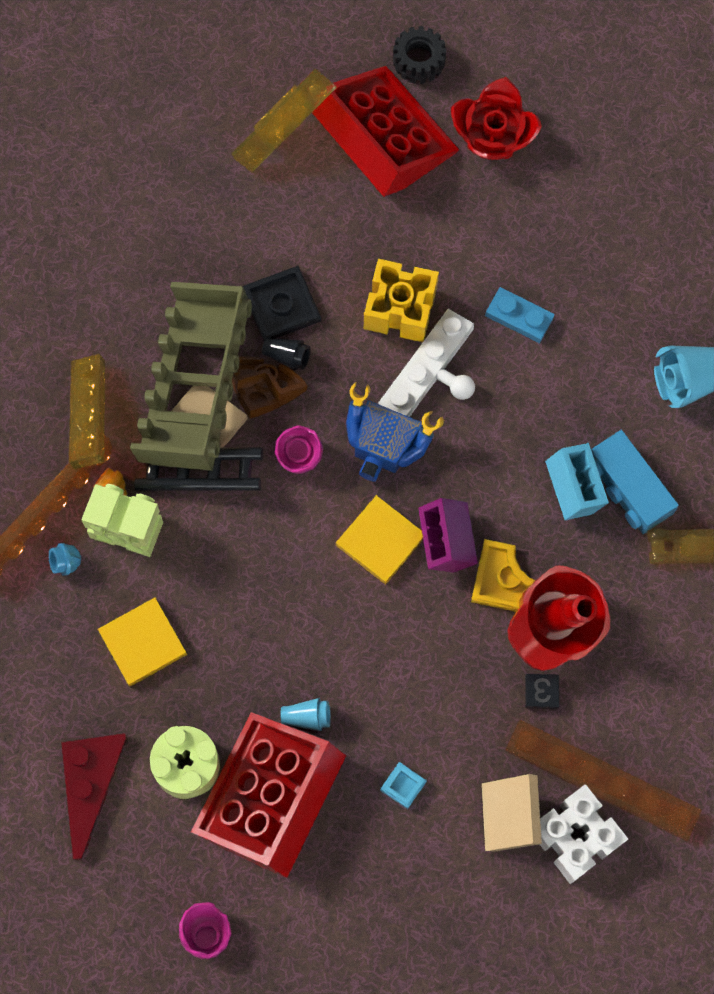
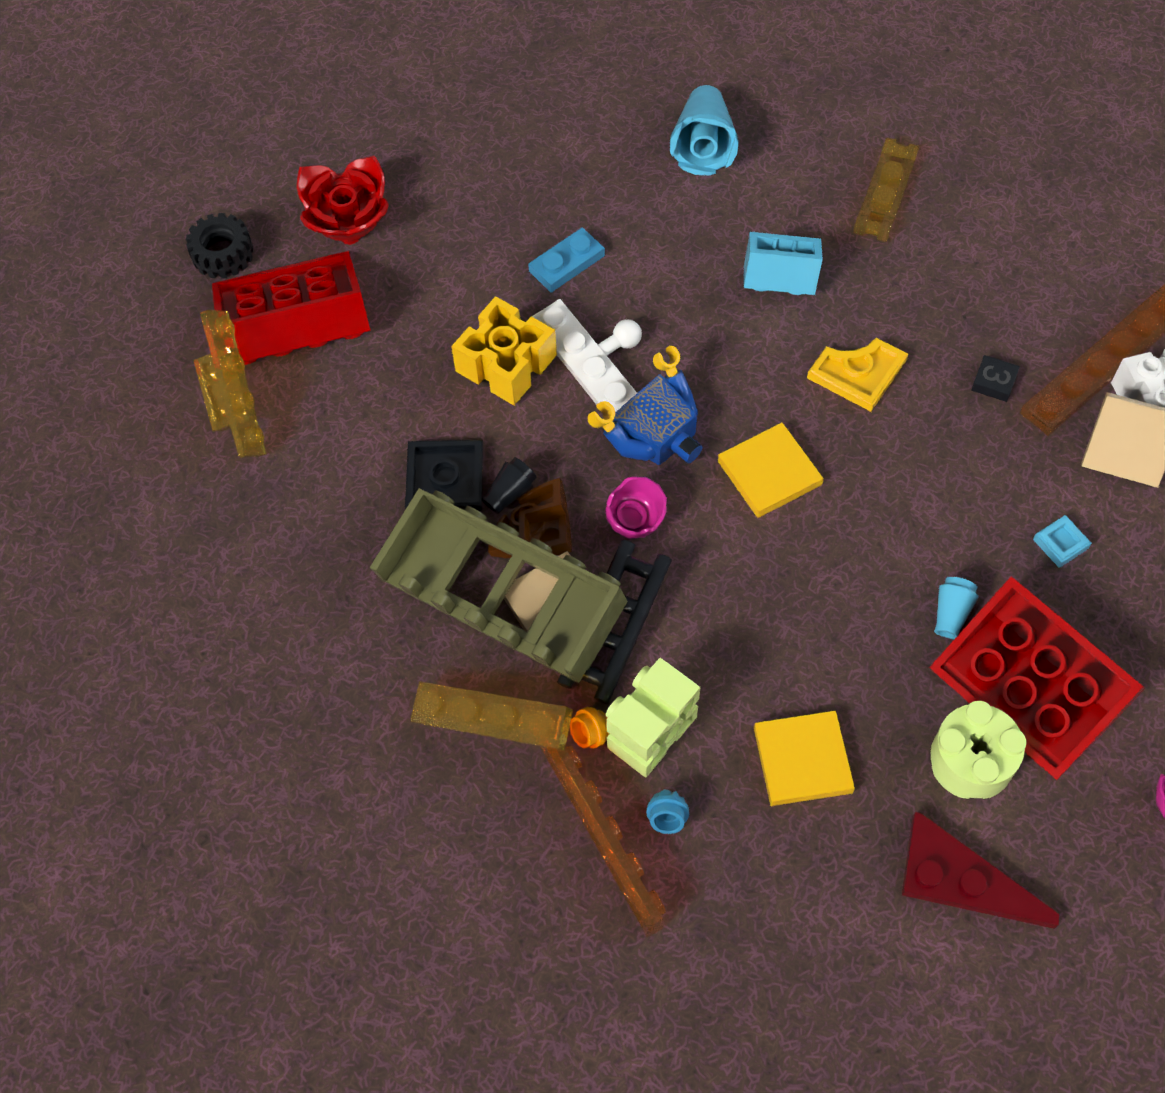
camera: 65 degrees left, 10 degrees down
(447, 535) = (796, 397): magenta brick -> none
(559, 618) = (932, 321): red piece -> none
(632, 483) = (813, 214): dark azure brick -> none

